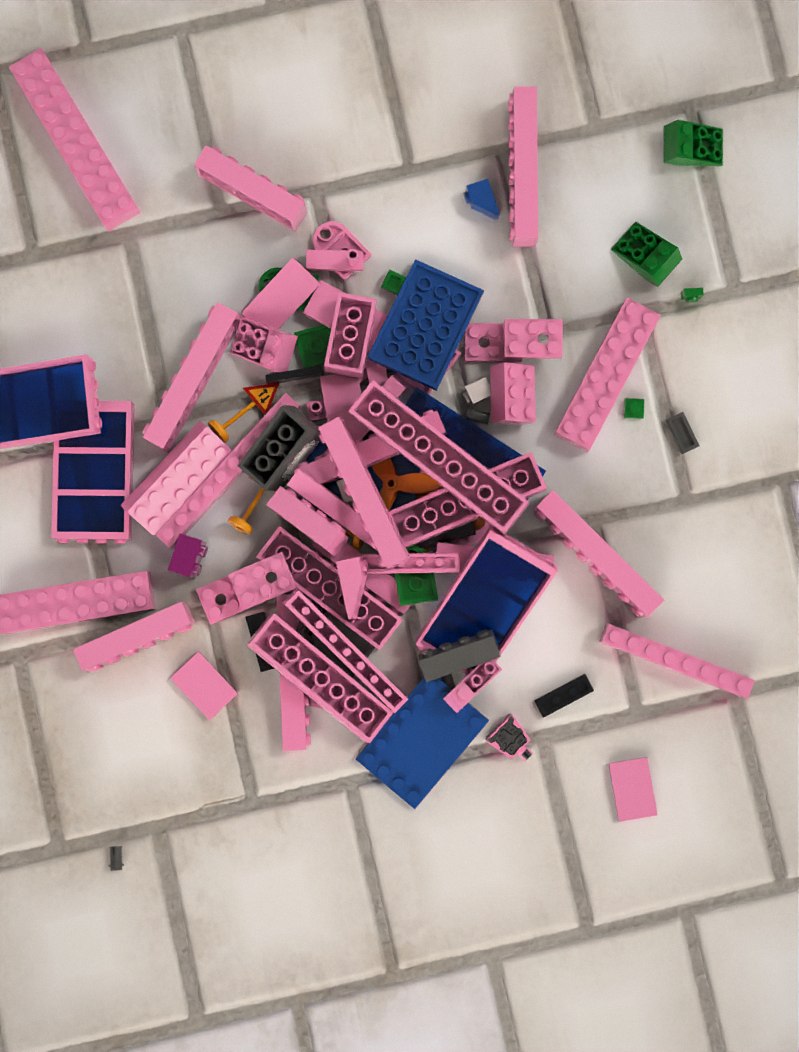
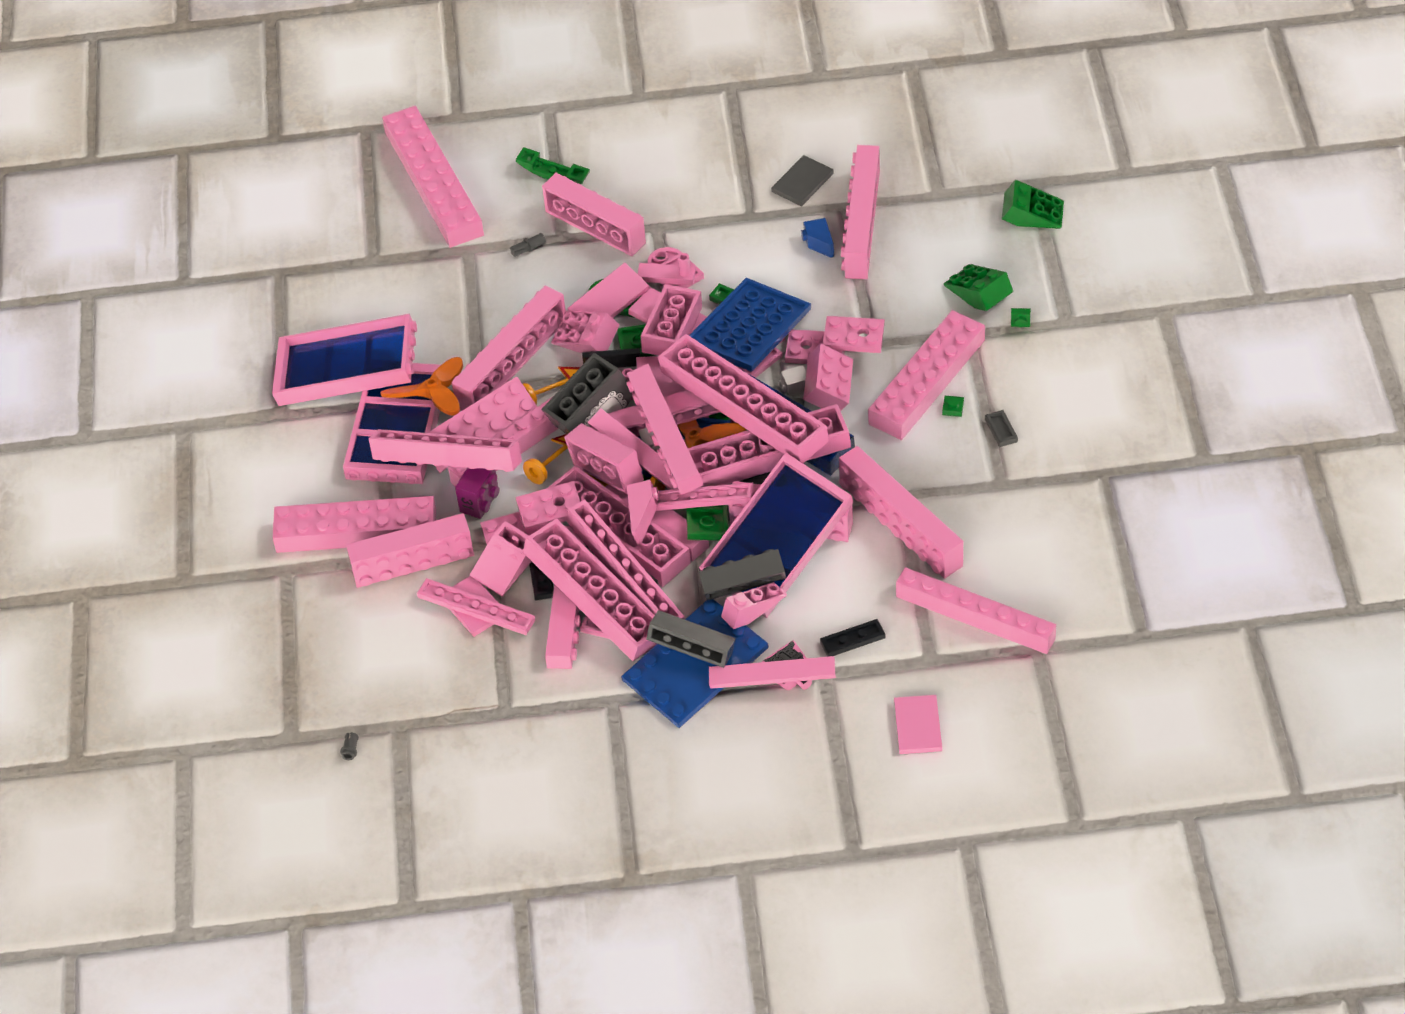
camera: 10 degrees right, 35 degrees down
(124, 437) = (434, 387): none -> orange piece
(151, 533) = (445, 450): none -> bright pink brick
(188, 227) = (528, 244): none -> dark grey axle
(197, 121) = (546, 169): none -> green slope
(207, 692) = (476, 606): none -> bright pink tile
(227, 640) = (502, 559): none -> bright pink slope
(419, 732) = (690, 638): none -> dark grey brick
(456, 118) = (802, 180): none -> dark grey tile
(497, 756) = (772, 672): none -> bright pink tile

